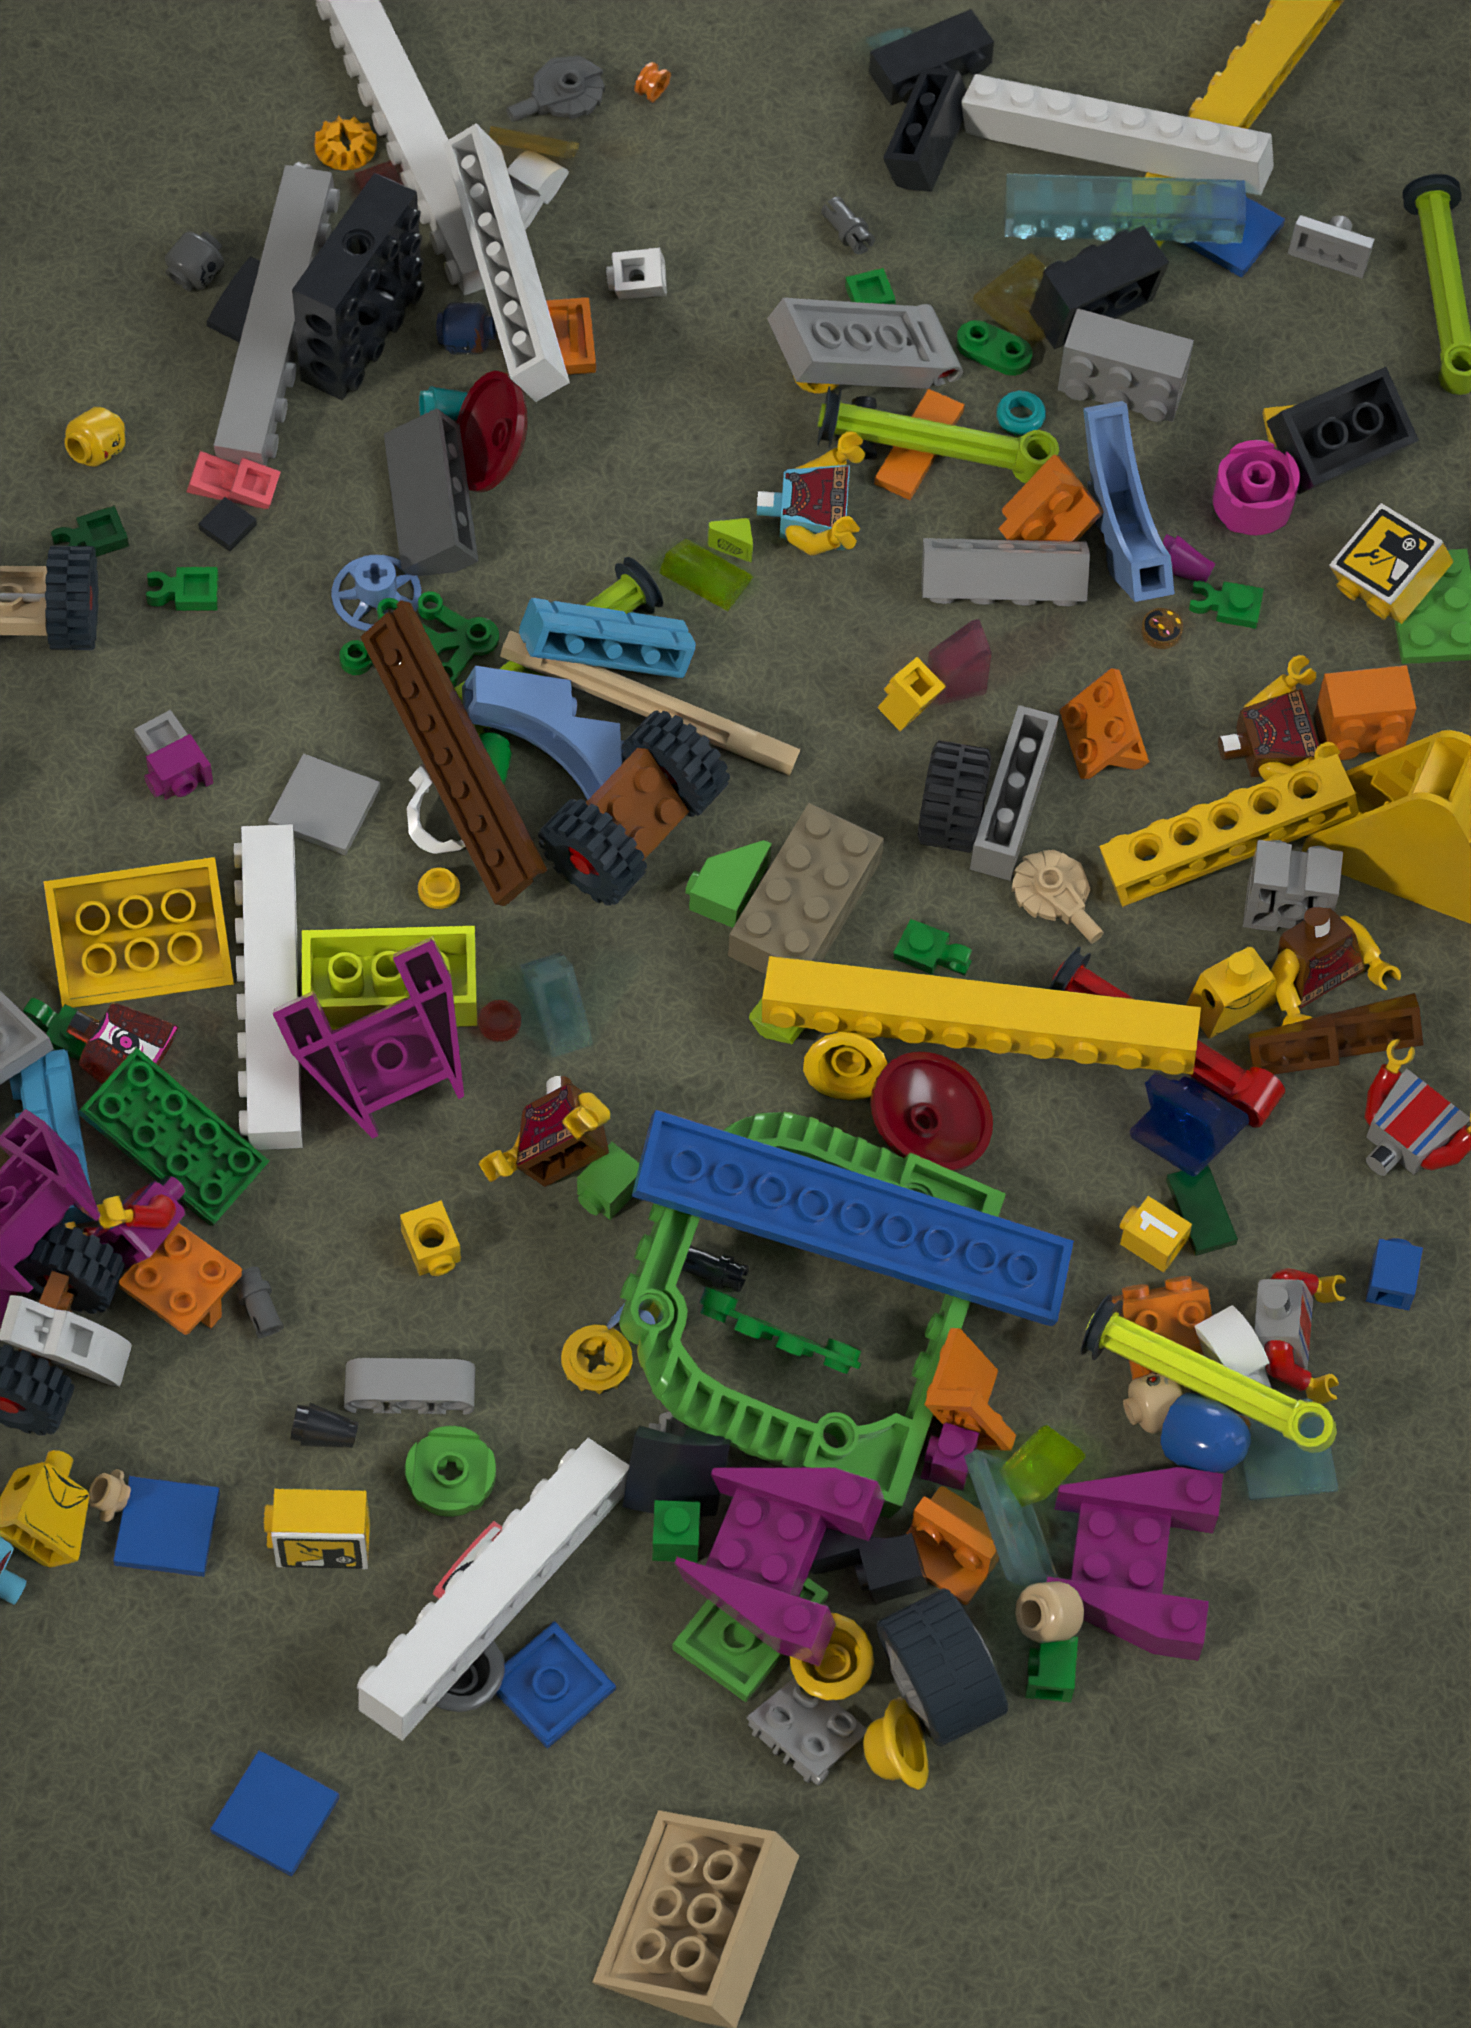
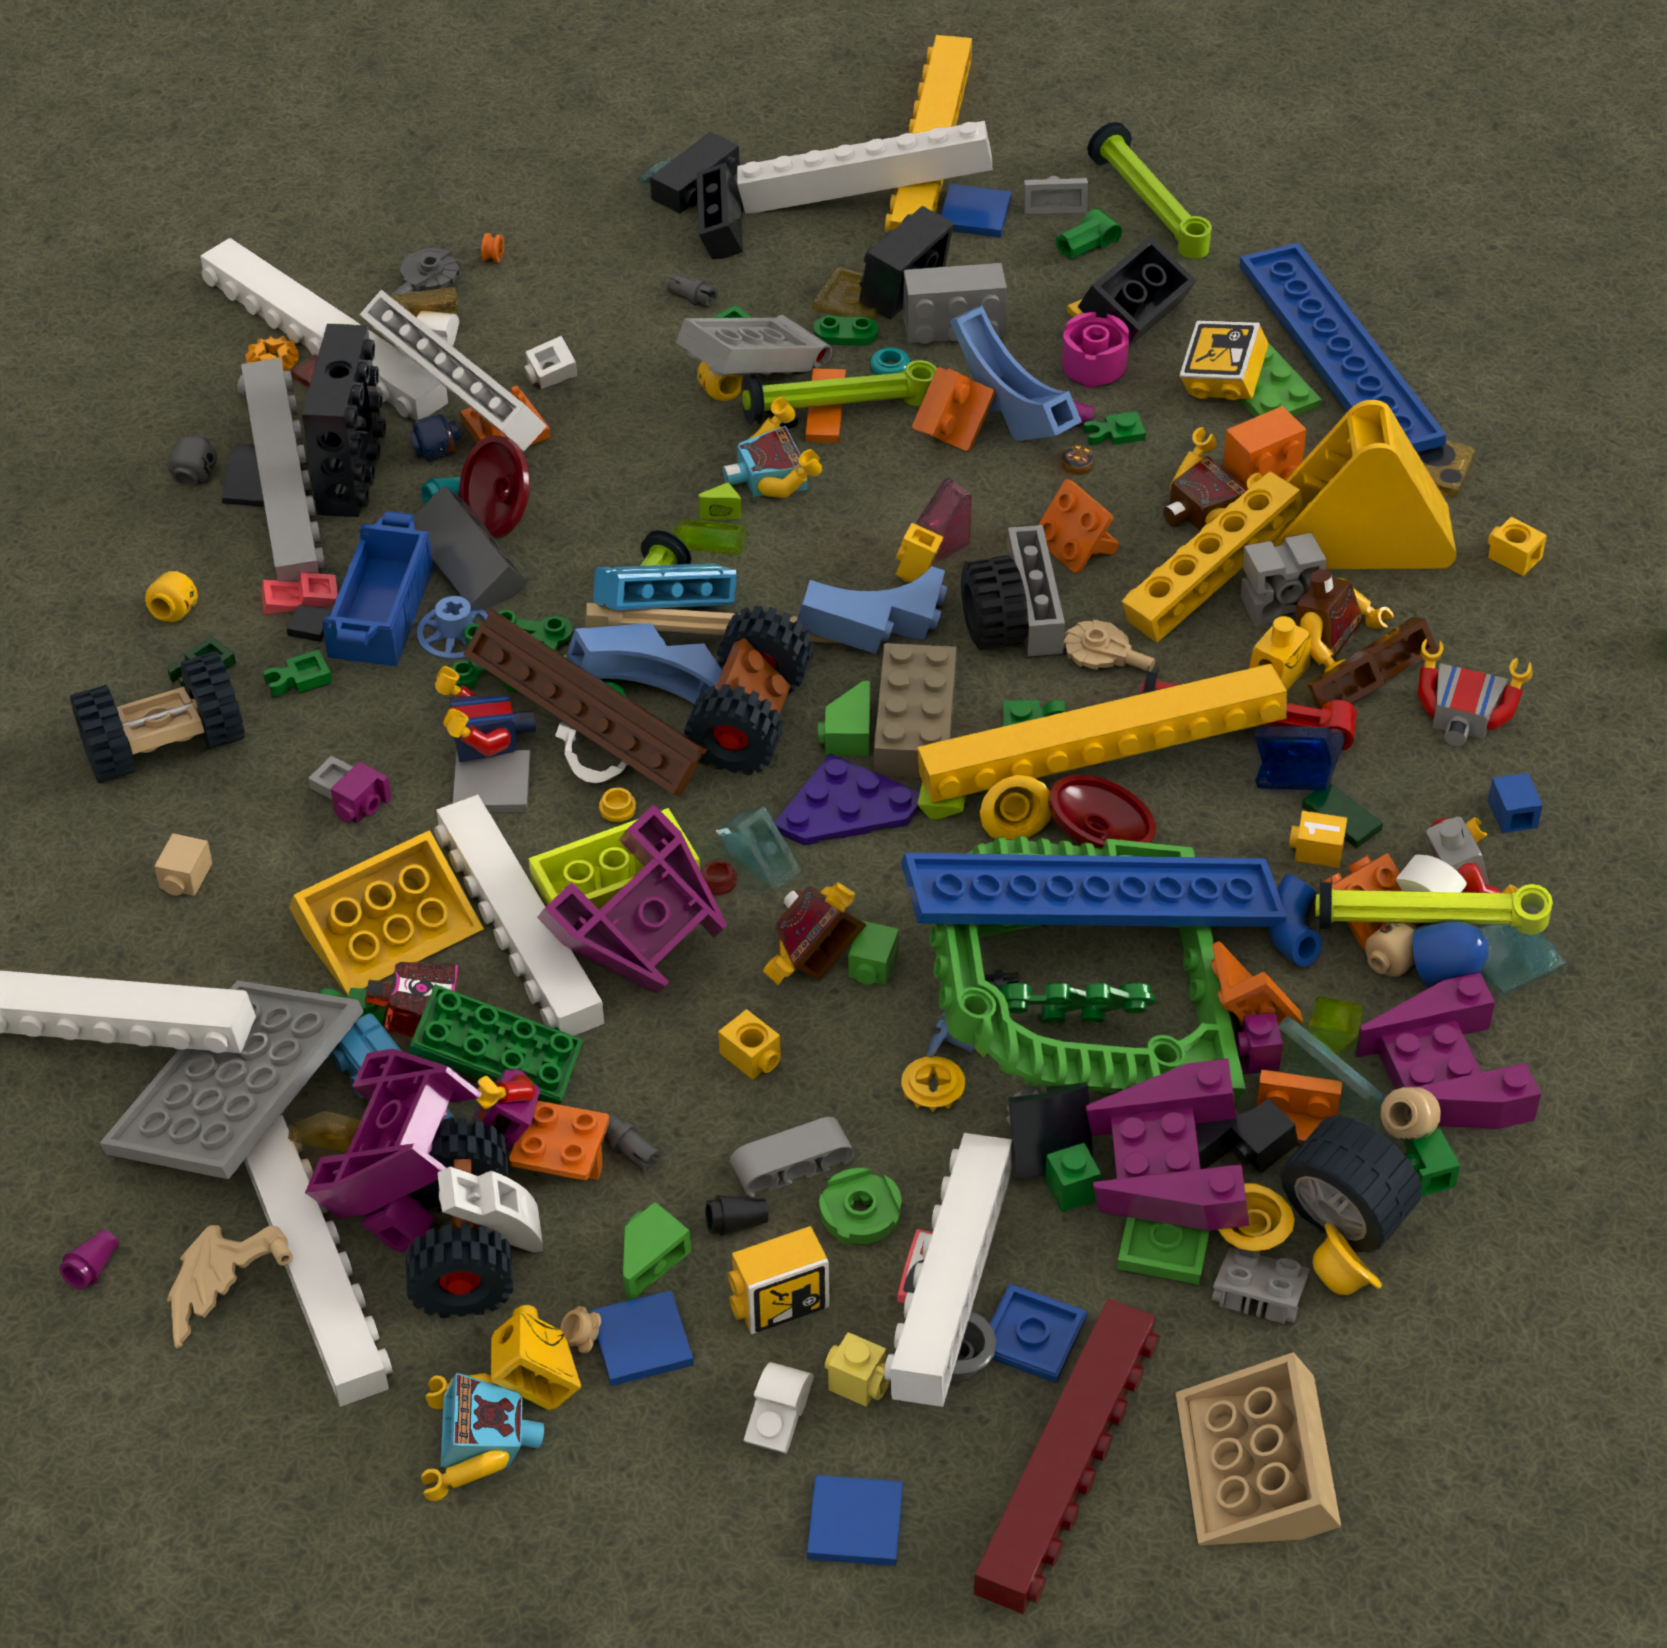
camera: 20 degrees left, 15 degrees down
(217, 1434) = (652, 1247): none -> bright green slope
(259, 1657) = (778, 1404): none -> white brick
(312, 520) = (380, 592): none -> blue container
(340, 730) = (481, 723): none -> torso
(349, 1652) = (857, 1370): none -> light yellow brick
(510, 1834) = (1065, 1457): none -> dark red brick
(677, 980) = (846, 803): none -> dark purple plate
(812, 759) = (869, 617): none -> medium blue arch
(1005, 571) = (940, 456): light grey brick -> none
(1060, 1342) = (1293, 937): none -> blue cylinder
(1105, 205) = (875, 211): clear light blue brick -> none
(1351, 314) = (1094, 231): none -> green piece

